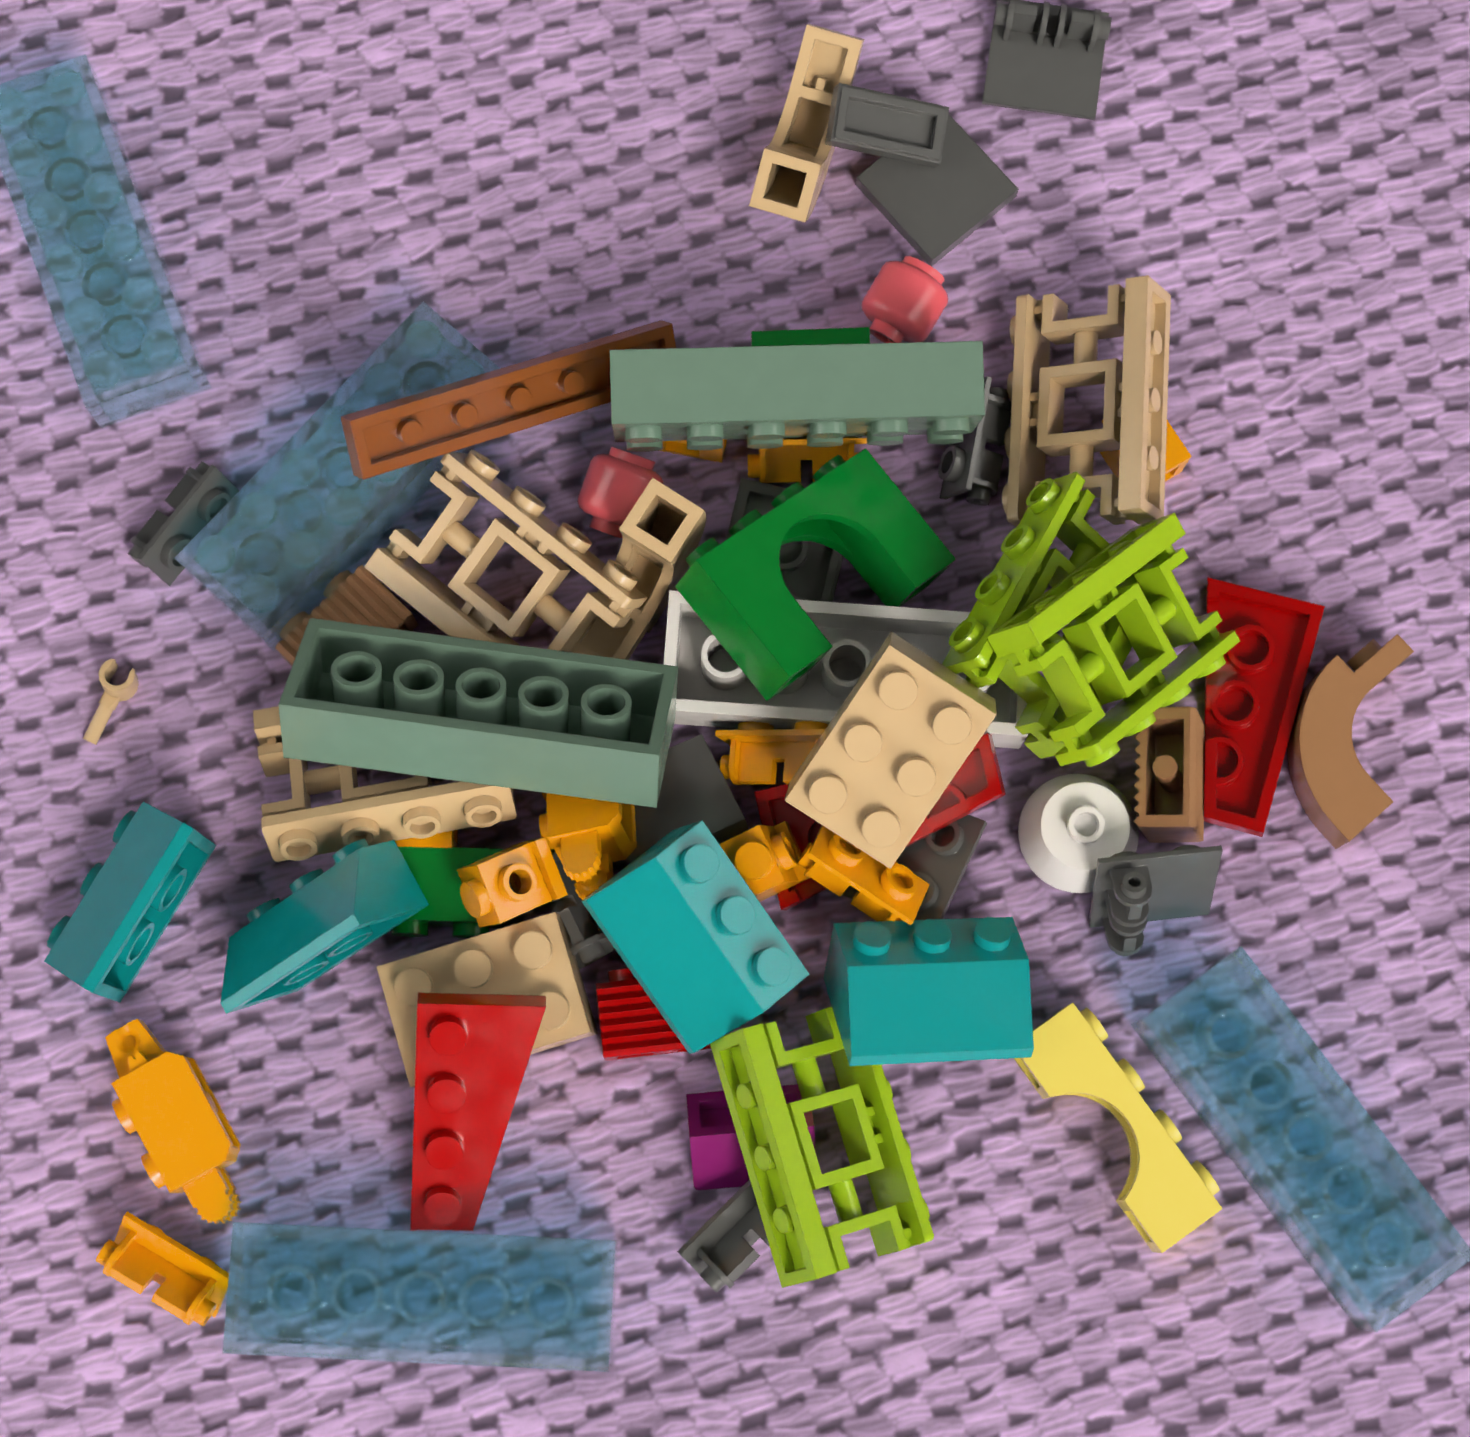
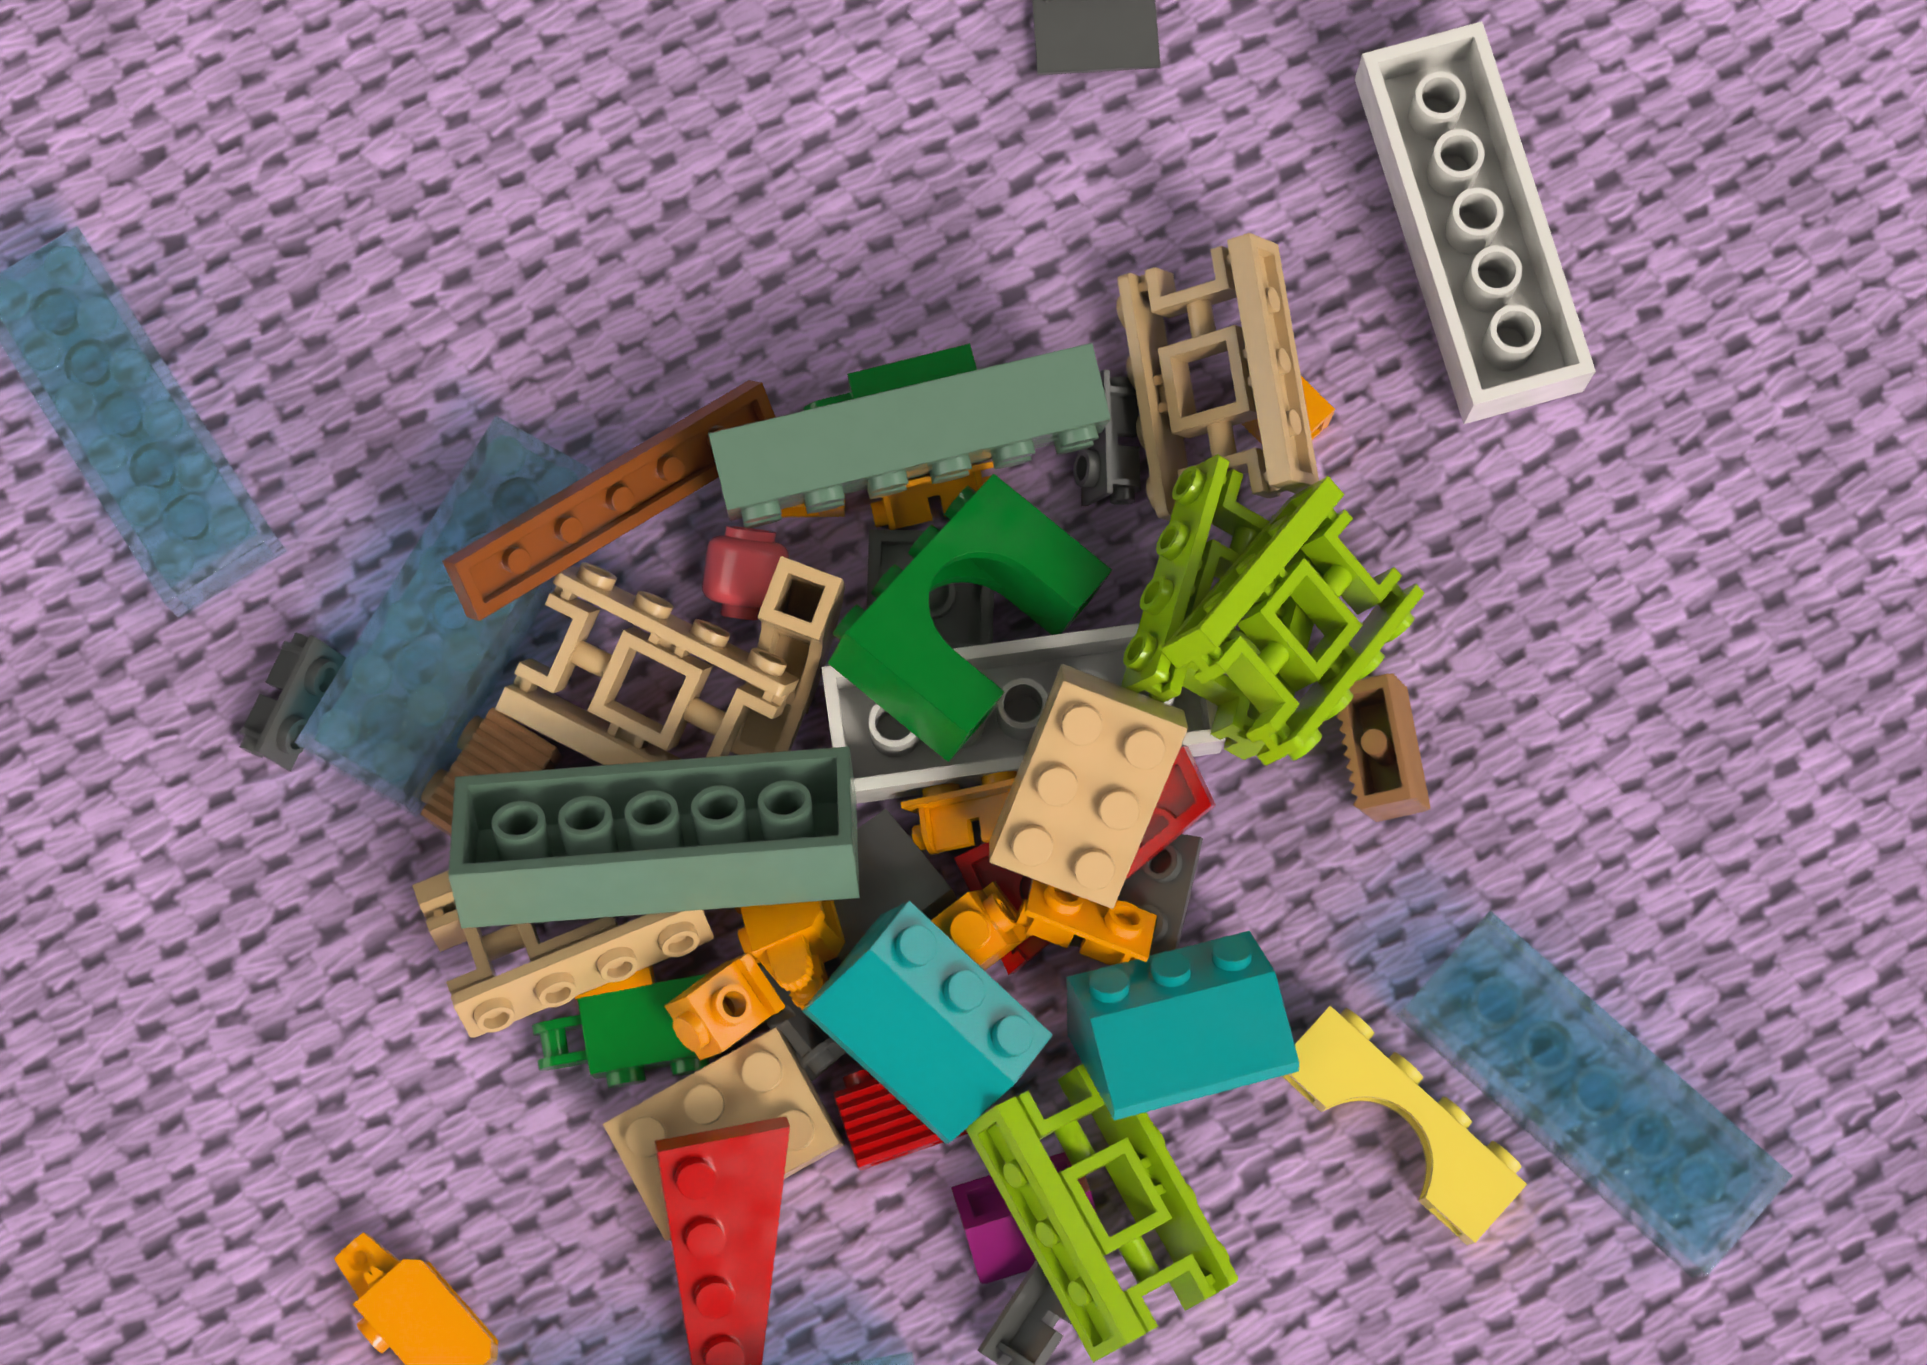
camera: 10 degrees left, 0 degrees up
(110, 698) = (255, 905): tan hand -> none
(128, 902) = (325, 1111): teal slope -> none
(319, 924) = (533, 1092): teal slope -> none
(797, 156) = (859, 140): tan arch -> none
(887, 125) = (942, 123): dark grey tile -> none
(905, 301) = (1001, 306): coral head -> none
(942, 203) = (1008, 174): dark grey tile -> none
(1071, 826) = (1299, 828): white cone -> none
(1151, 888) = (1384, 870): dark grey hinge -> none
(1253, 700) = (1452, 650): red wing -> none
(1320, 749) = (1535, 697): medium nougat arch -> none
(1354, 315) = (1473, 223): none -> white brick

